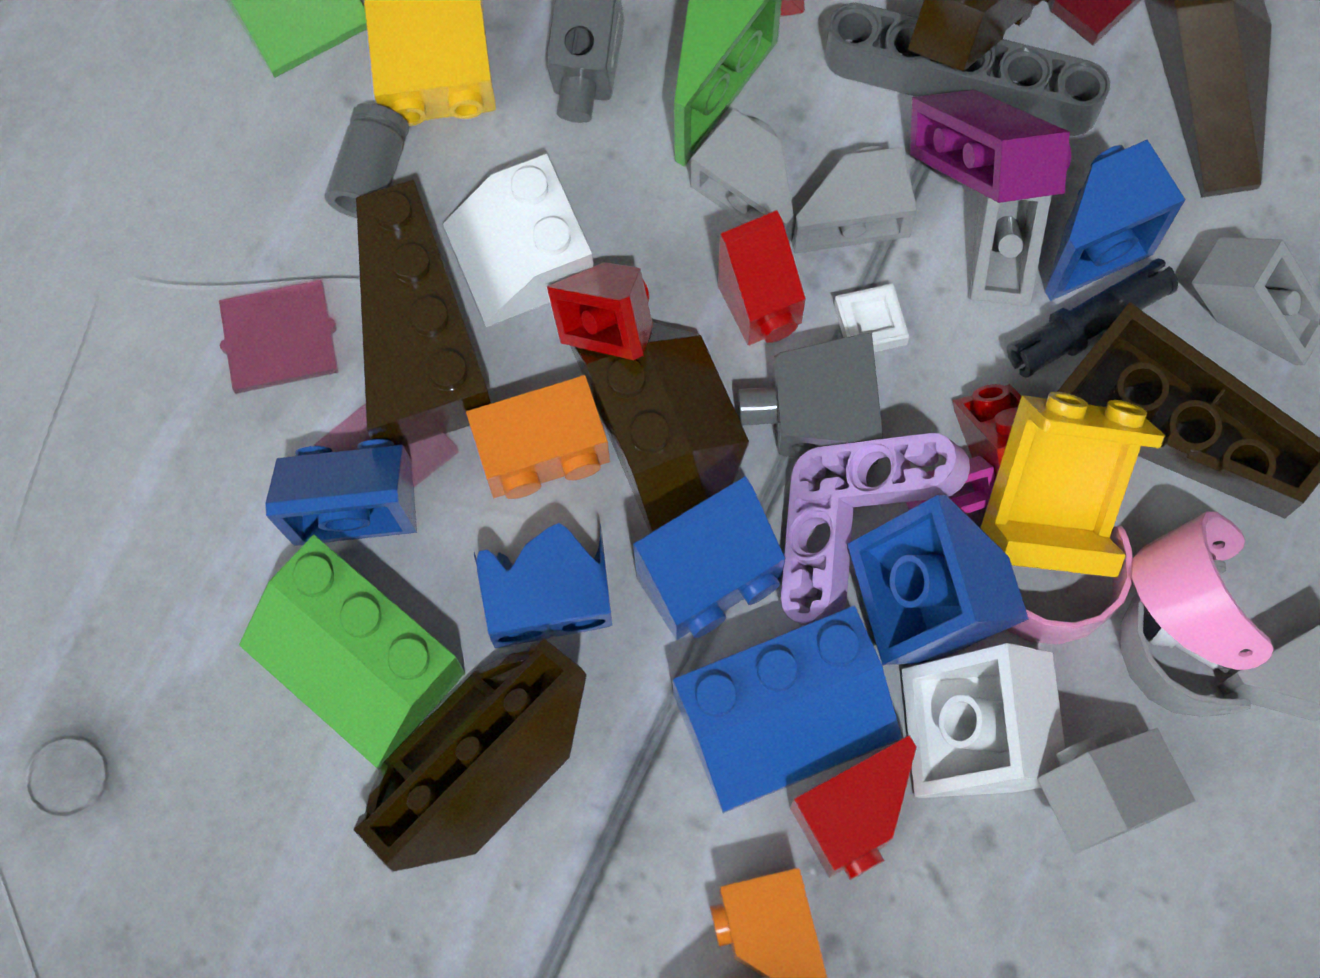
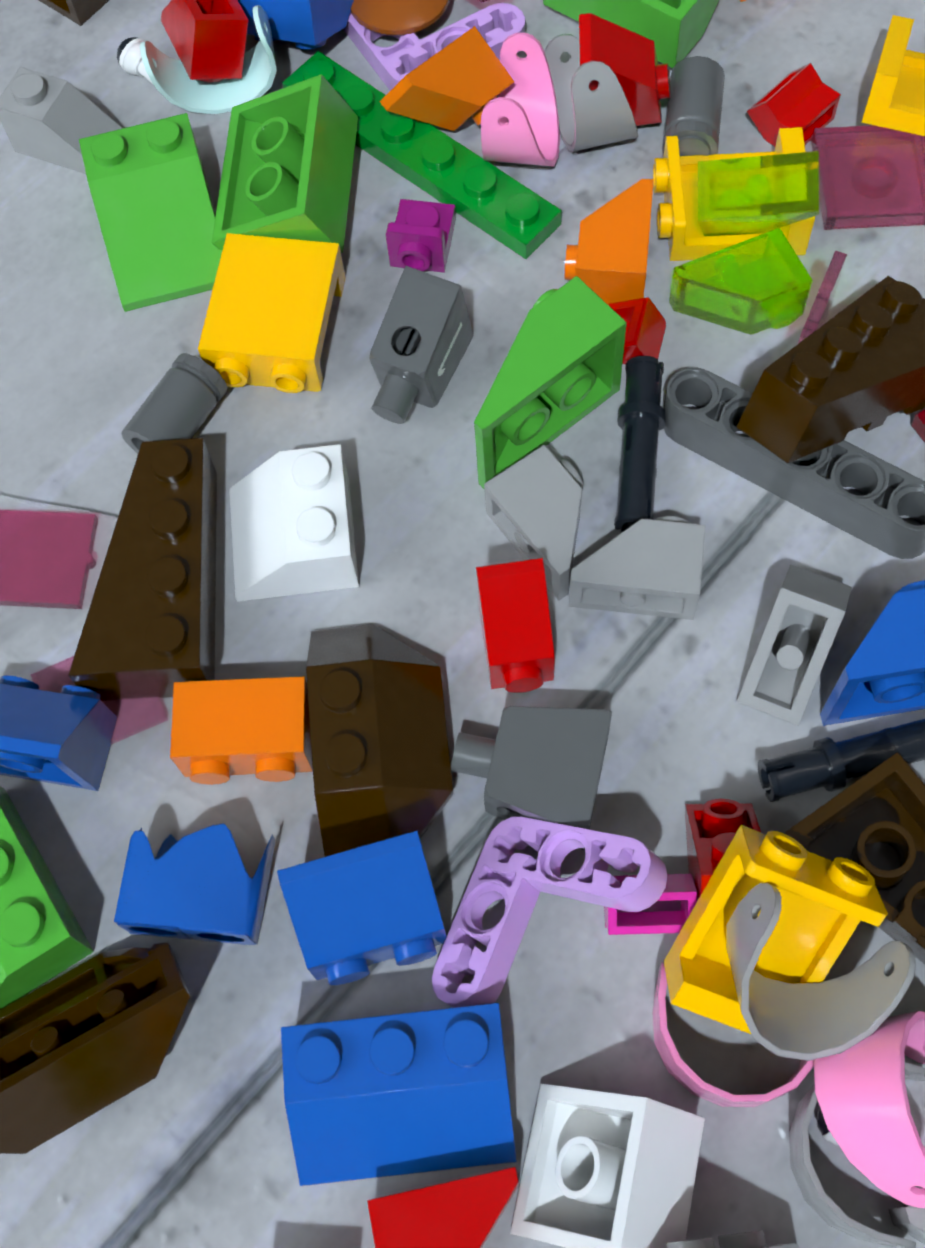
camera: 20 degrees right, 5 degrees down
(603, 310) = (347, 616): red slope -> none
(810, 66) = (641, 421): none -> black pin
(873, 312) = (628, 692): white tile -> none
(934, 583) = (592, 1005): blue slope -> none
(990, 145) = (794, 548): magenta brick -> none
(1124, 541) = (809, 1018): none -> light grey piece

